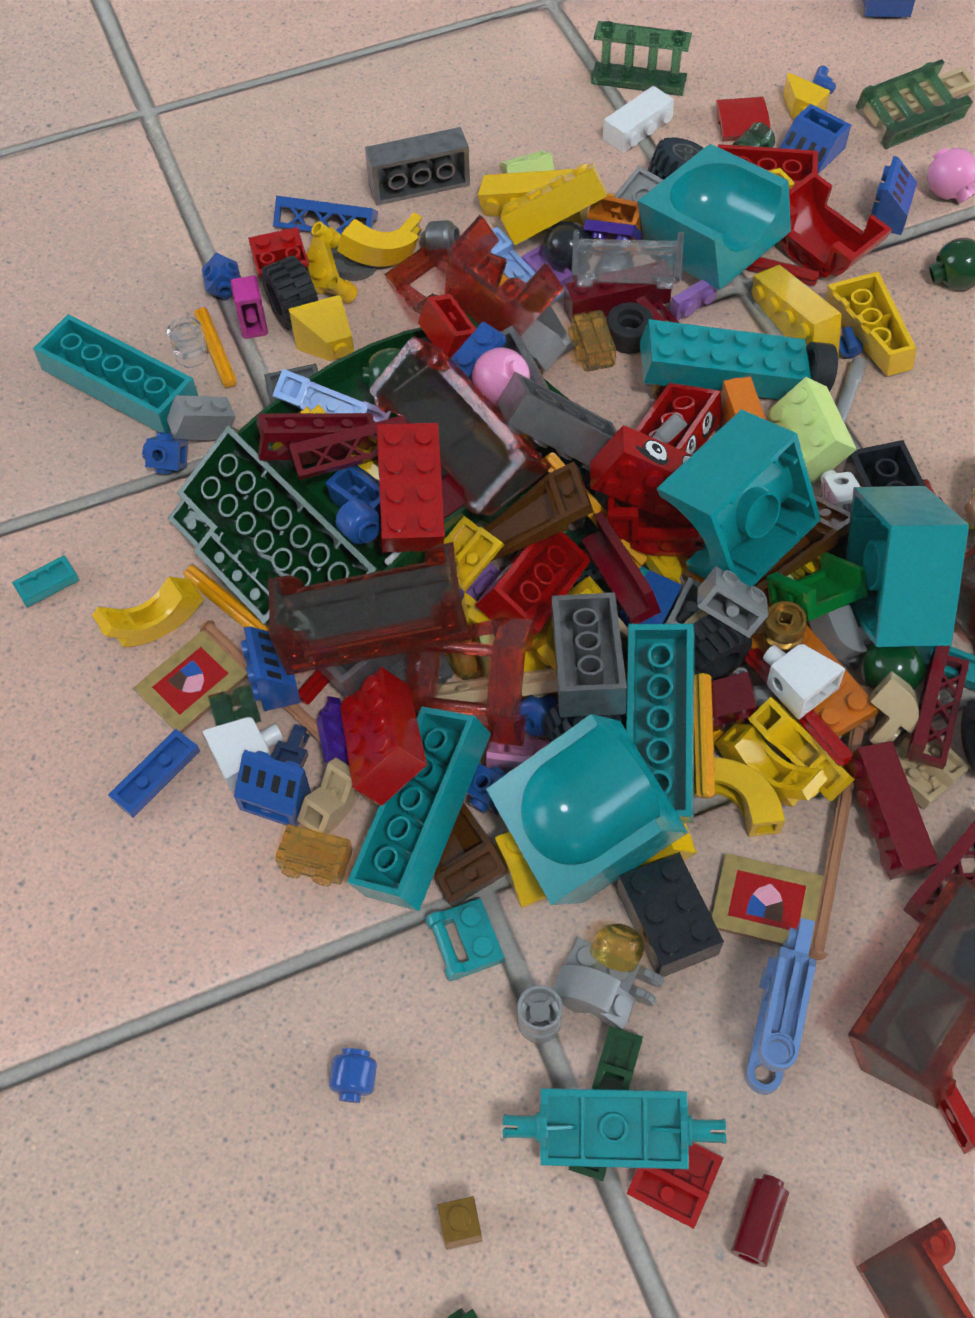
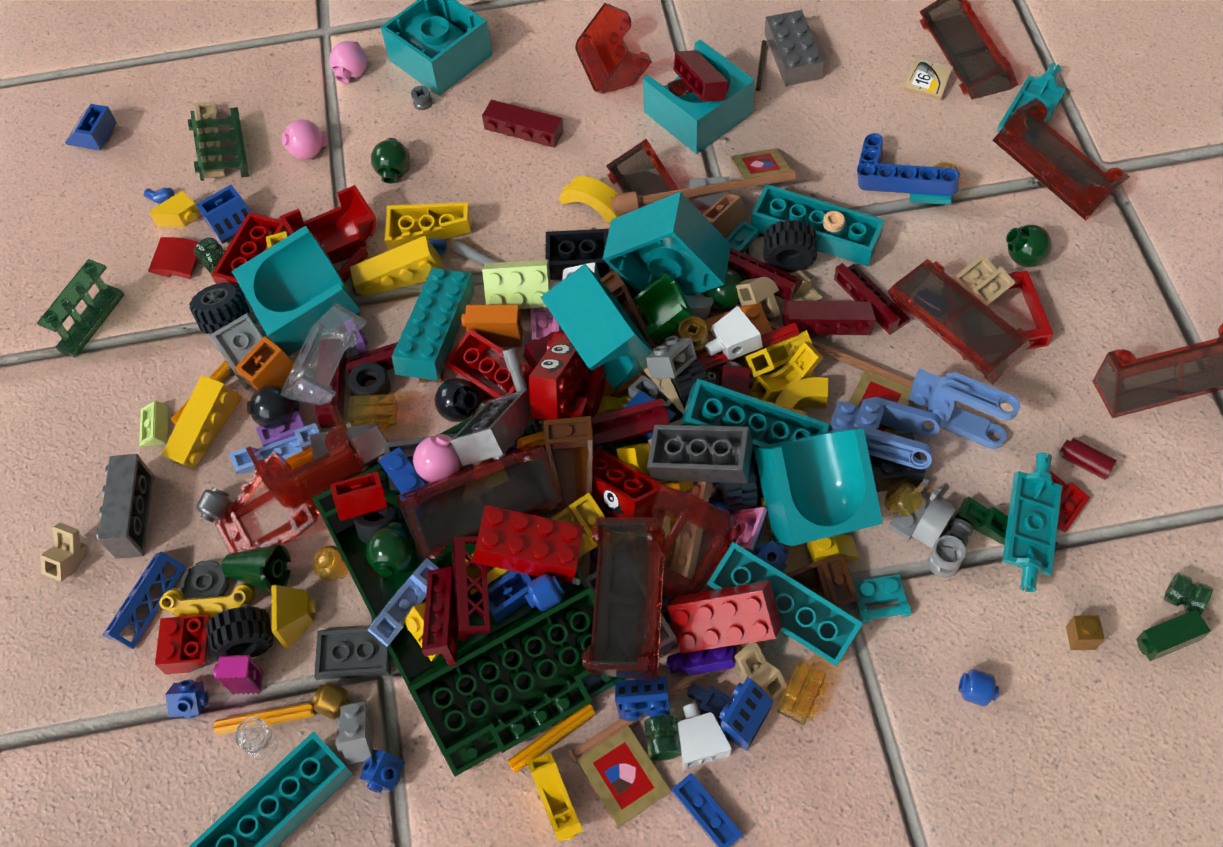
camera: 75 degrees left, 0 degrees up
(240, 392) = (329, 700): none -> pearl gold head
(353, 139) = (65, 555): none -> tan brick
(373, 295) = (259, 566): none -> dark green cone
(379, 247) = (206, 562): yellow arch -> none
(553, 202) = (232, 403): yellow wedge -> none
(583, 1031) = (960, 529): none -> dark grey wheel
(611, 230) = (286, 359): dark purple plate -> none
(624, 405) = (456, 400): none -> black brick
(638, 119) = (143, 329): white brick -> none
(717, 865) = (884, 445): none -> medium blue plate
(823, 363) = (463, 257): black tyre -> none
(894, 195) = (311, 182): blue slope -> none

